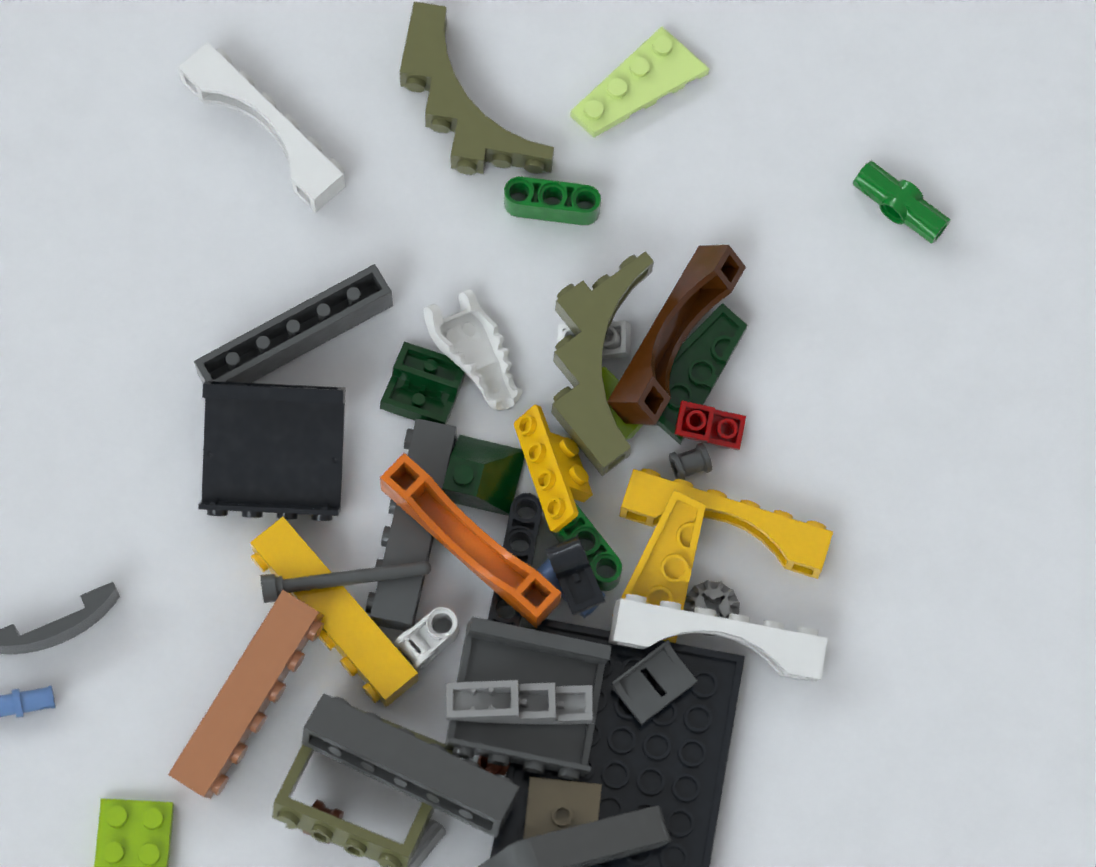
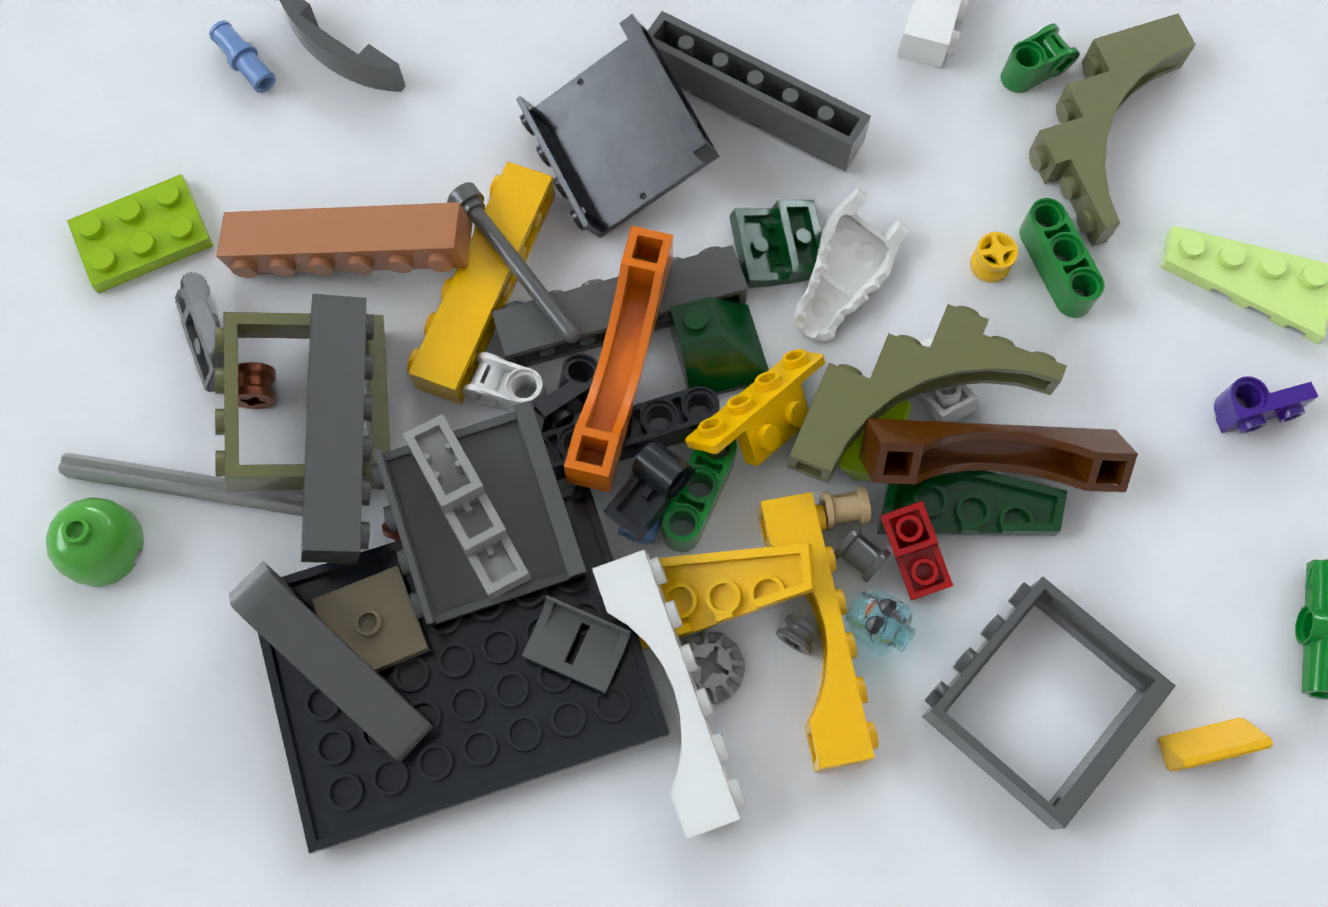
camera: 65 degrees right, 0 degrees up
(254, 840) = (199, 326): none -> hinge
(385, 113) = (1037, 60): none -> green piece
(465, 592) = (568, 400): none -> black plate
(524, 237) = (998, 247): none -> yellow wheel
(652, 452) = (846, 507): none -> tan bush
(723, 535) = (798, 634): none -> dark grey bush
(732, 142) = (1260, 404): none -> dark purple plate
(744, 477) = (880, 622): none -> clear light blue head
(902, 383) = (1150, 693): none -> dark grey window
(933, 319) = (1212, 743): none -> yellow slope

